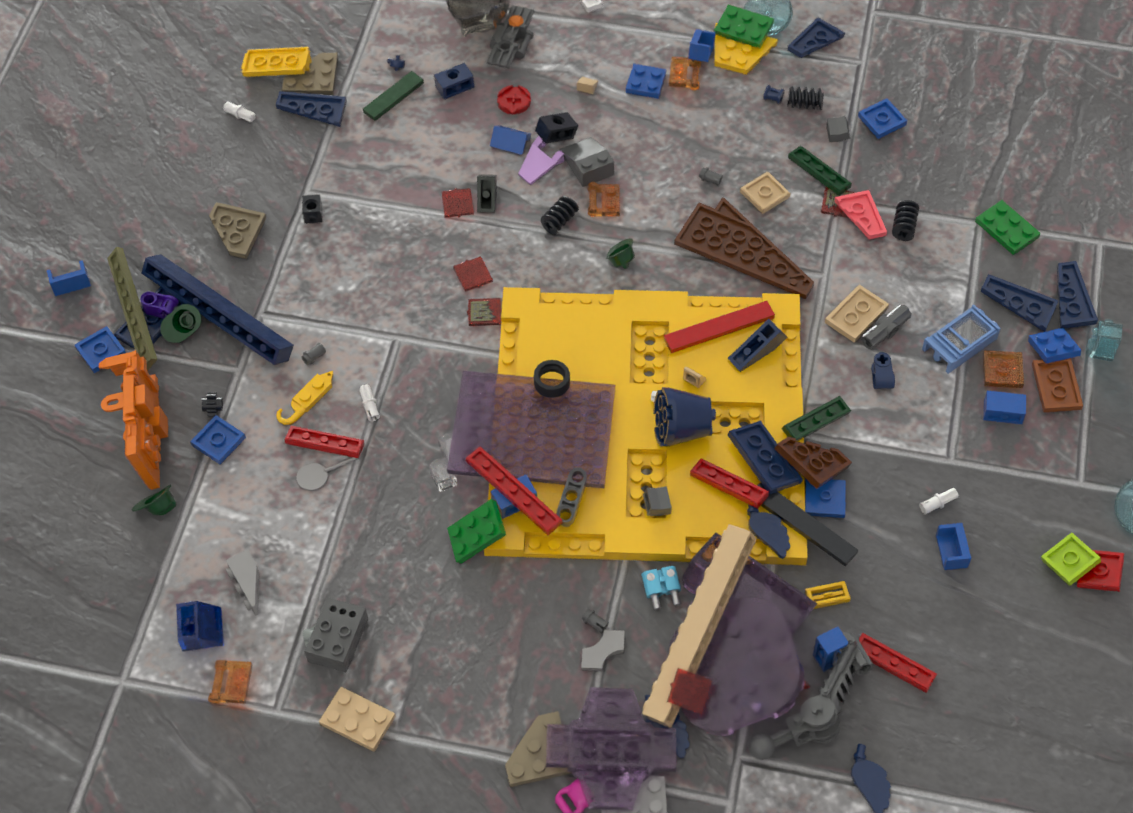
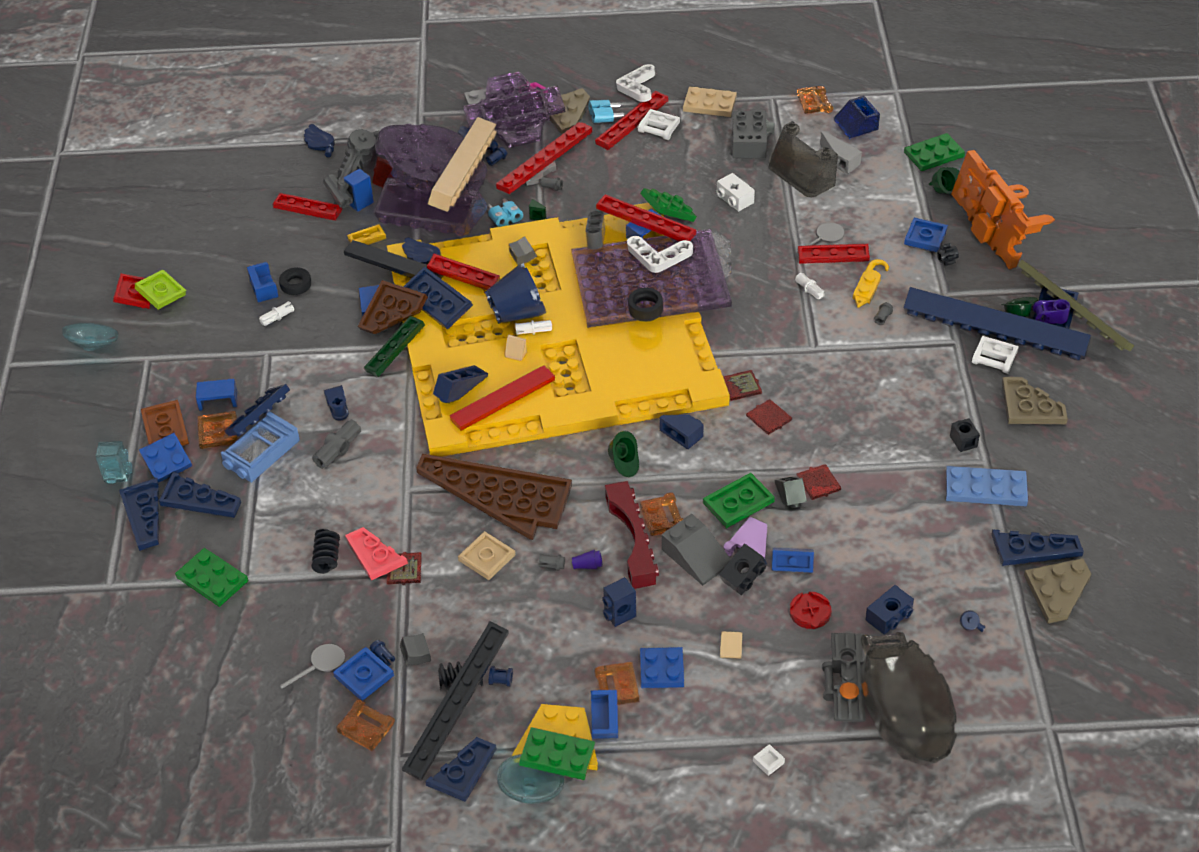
camera: 165 degrees right, 10 degrees down
(70, 281) = (1157, 323): blue panel -> none
(98, 347) = (1080, 277): blue plate -> none
(138, 561) = (934, 152): none -> green plate
(232, 288) = (995, 349): none -> white plate
(239, 111) = (1112, 522): white axle -> none
(276, 61) = (1109, 580): yellow brick -> none
(311, 579) = (802, 166): none -> clear smoke windscreen
(319, 167) = (986, 486): none -> medium blue plate
(385, 540) = (735, 192): none -> white brick
(393, 96) = (952, 583): dark green tile -> none
(431, 693) = (659, 120): none -> white plate
(442, 779) = (631, 83): none -> white beam
(464, 712) = (630, 121): none -> red tile
(499, 730) = (602, 111): none -> medium azure piece
(516, 437) = (658, 261): none -> white beam
(533, 194) = (738, 500): none -> green plate
(558, 269) = (682, 429): none -> dark blue slope
(559, 214) = (702, 480): black piece -> none
(591, 662) = (543, 158): none -> red plate
(624, 575) = (537, 211): none -> dark green slope
(637, 209) = (639, 565): none -> dark red arch
(645, 686) = (499, 154): none -> dark blue pin
(666, 118) = (619, 602): none -> dark blue brick
(679, 169) = (588, 560): none -> dark purple cone
(689, 691) = (462, 130): clear red piece -> none
(812, 69) = (455, 701): none -> black plate
(819, 170) = (430, 595): dark green tile -> none
(856, 313) = (368, 451): tan plate -> none
(867, 133) = (379, 649): none -> dark blue pin
(887, 82) = (363, 731): none -> clear orange plate
(913, 142) = (323, 658): none -> light grey piece
(915, 556) = (292, 273): none -> black tyre
(959, 371) = (262, 405): none -> dark blue wing

